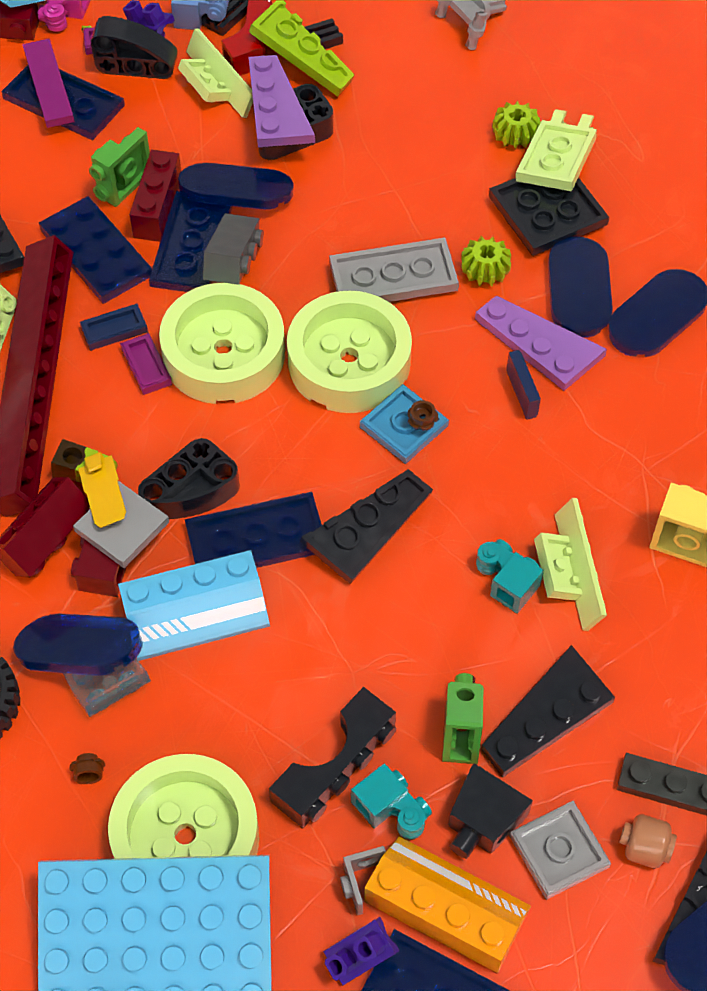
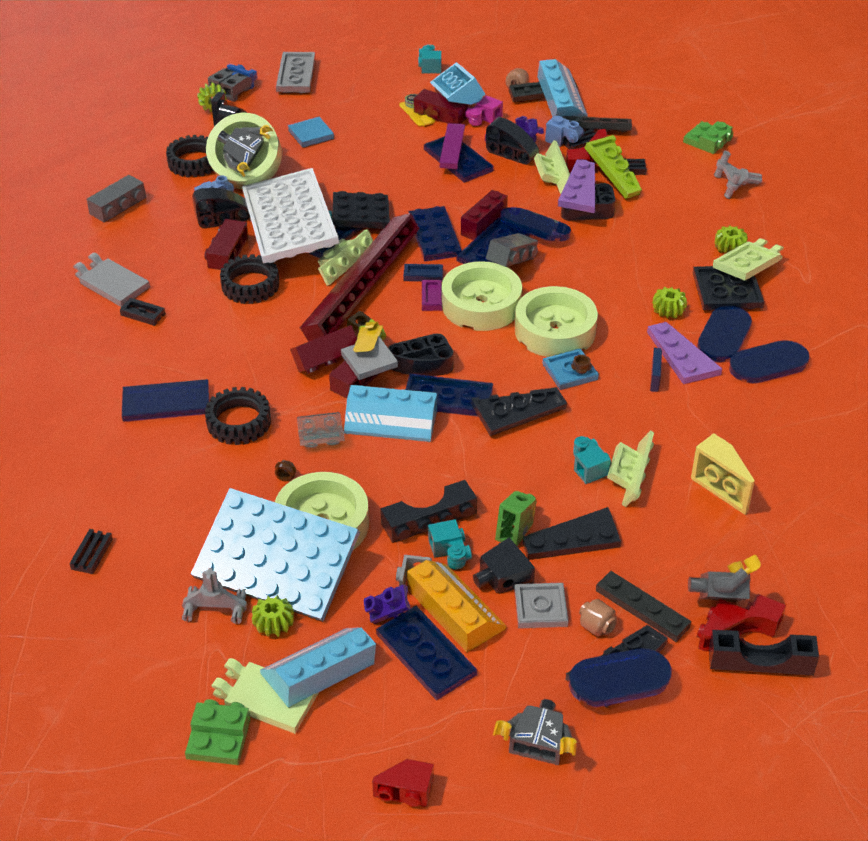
camera: 25 degrees right, 15 degrees down
(78, 644) = (312, 407): clear blue tile -> none
(119, 167) = (468, 191): bright green plate -> none
(397, 270) = (612, 292): light grey plate -> none

